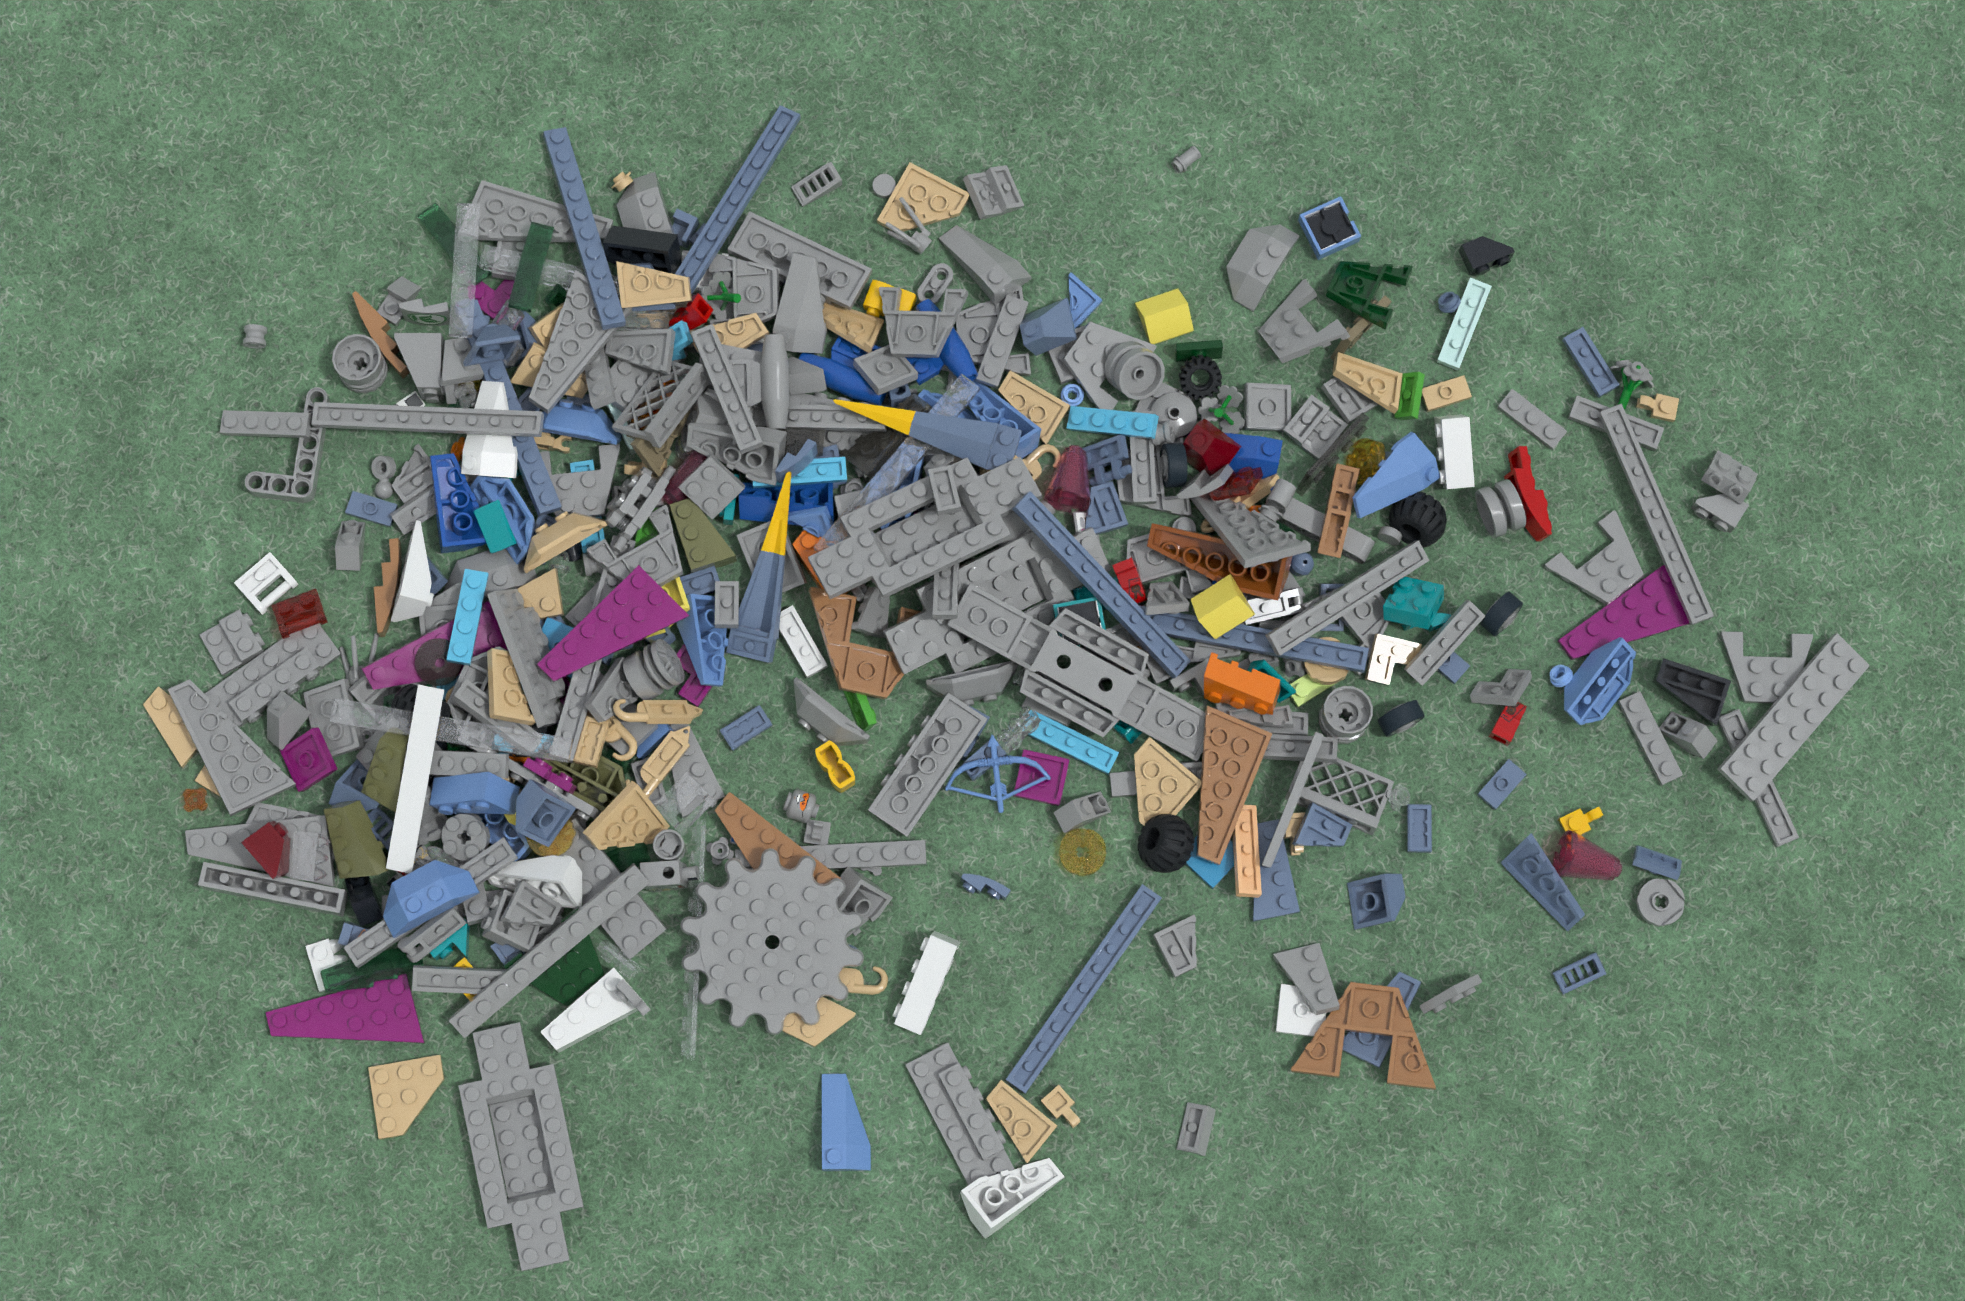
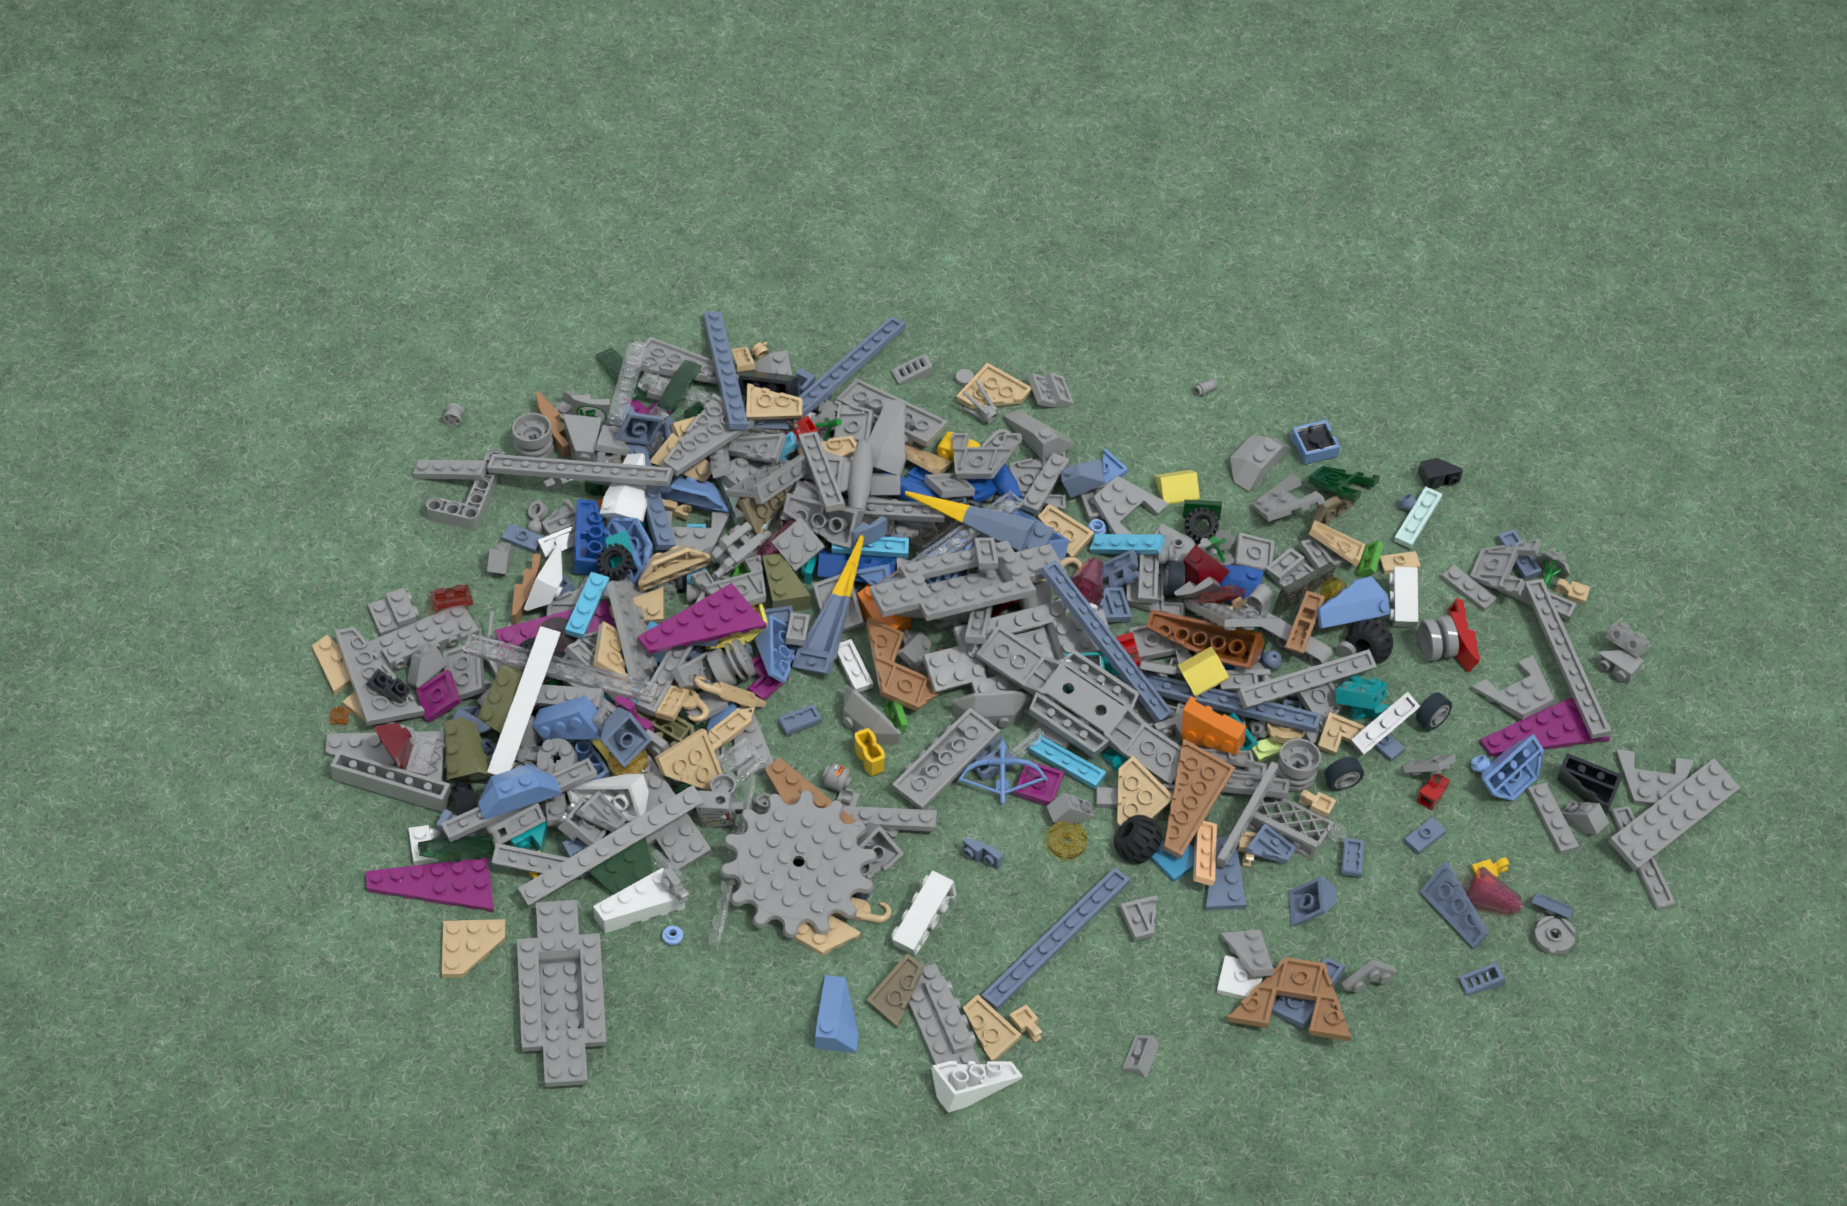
camera: 10 degrees right, 25 degrees down
(247, 761) = (389, 688): none -> black slope
(261, 577) = (426, 571): white plate -> none
(505, 546) = (622, 569): none -> black tyre
(511, 790) = (600, 717): none -> light grey tile
(602, 199) = (742, 359): none -> tan plate
(641, 1054) = (672, 940): none -> light blue plate
(907, 1089) = (897, 989): none -> dark tan wing
(1134, 370) = (1149, 510): light grey wheel -> none
(1376, 759) = (1319, 803): none -> tan plate
(1563, 385) = (1496, 564): none -> light grey wing

